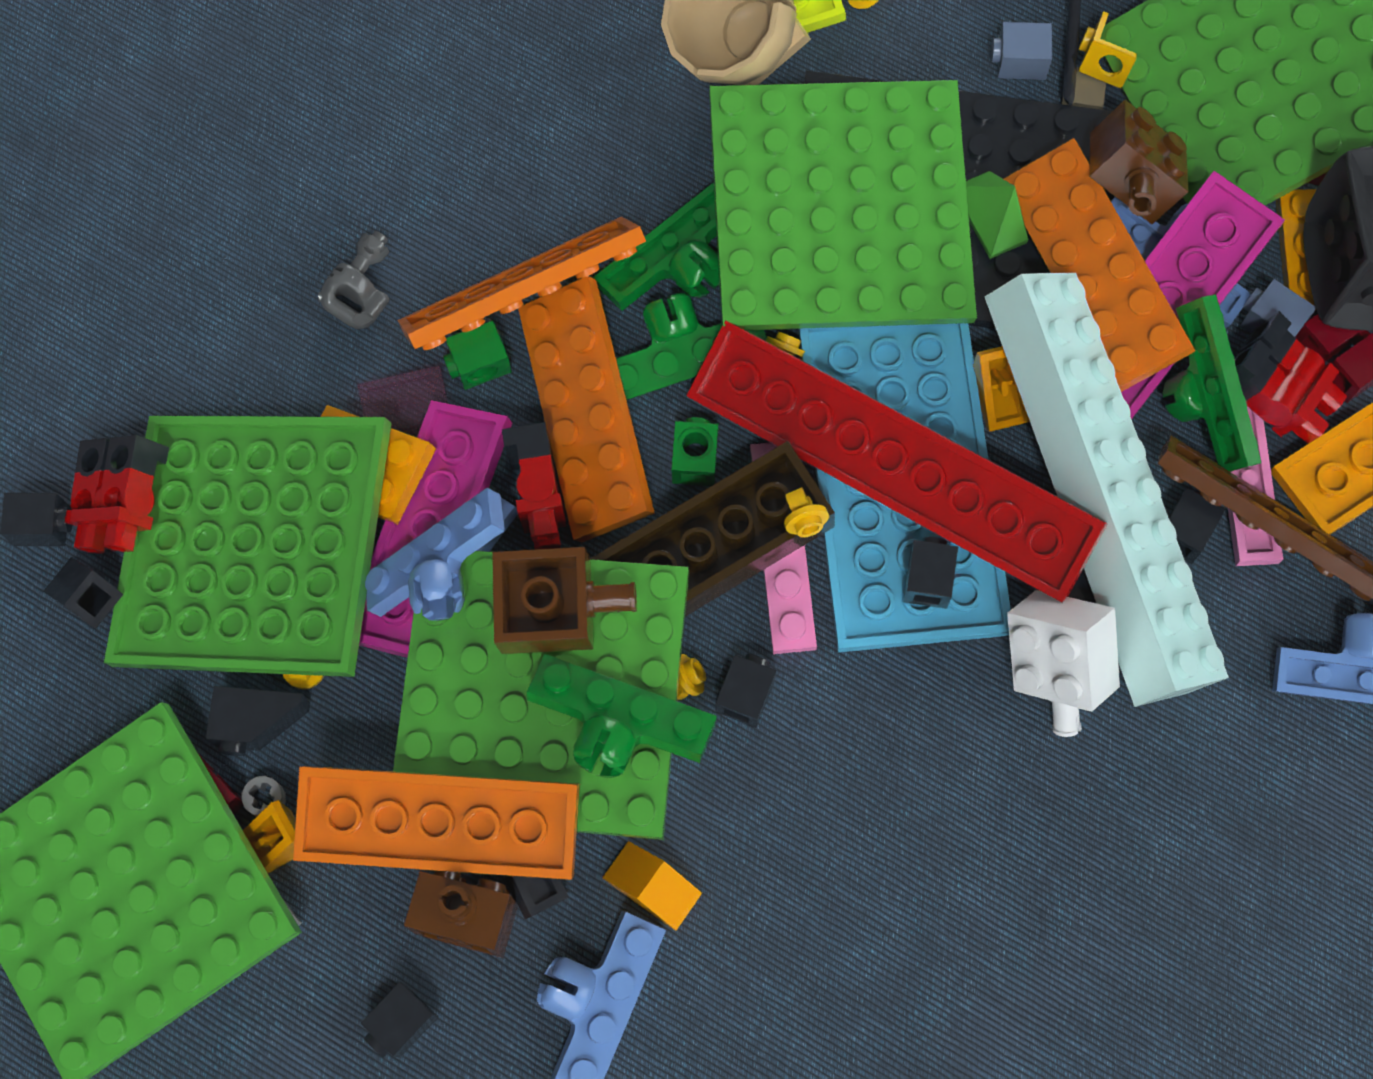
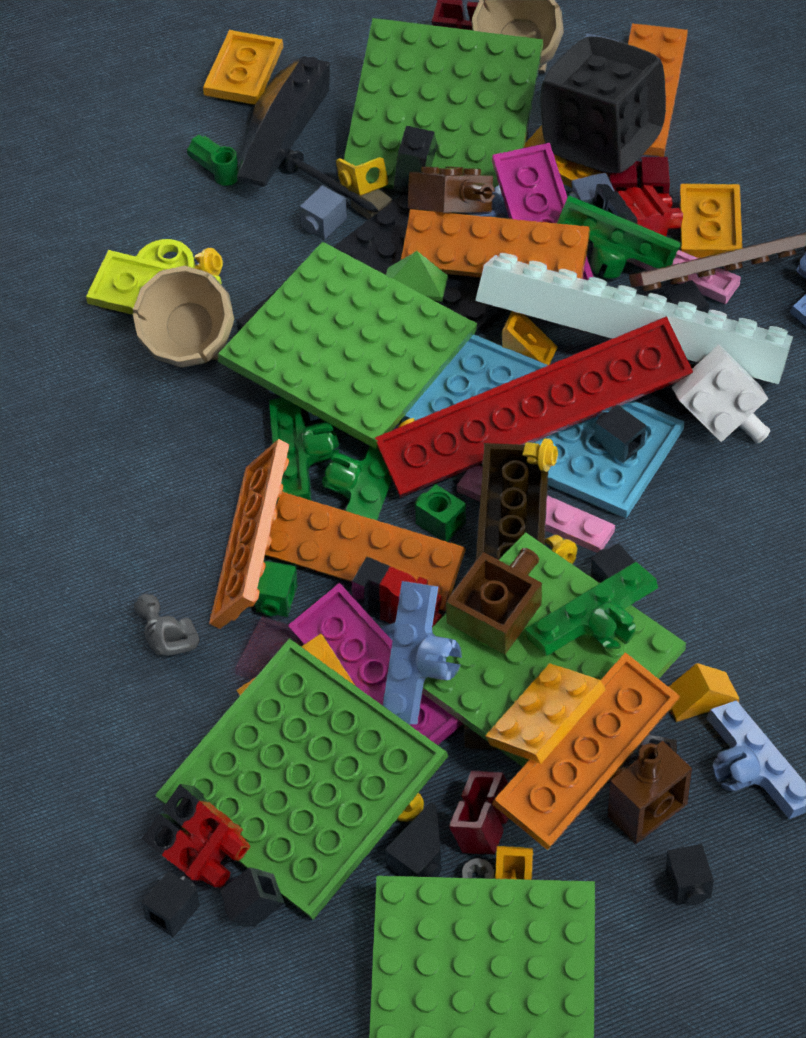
camera: 55 degrees left, 20 degrees down
(350, 742) = (476, 820): none -> dark red piece
(443, 749) = (545, 713): none -> light orange plate
(731, 616) = (565, 548): none -> yellow plate
(1163, 88) = (415, 151): none -> black slope

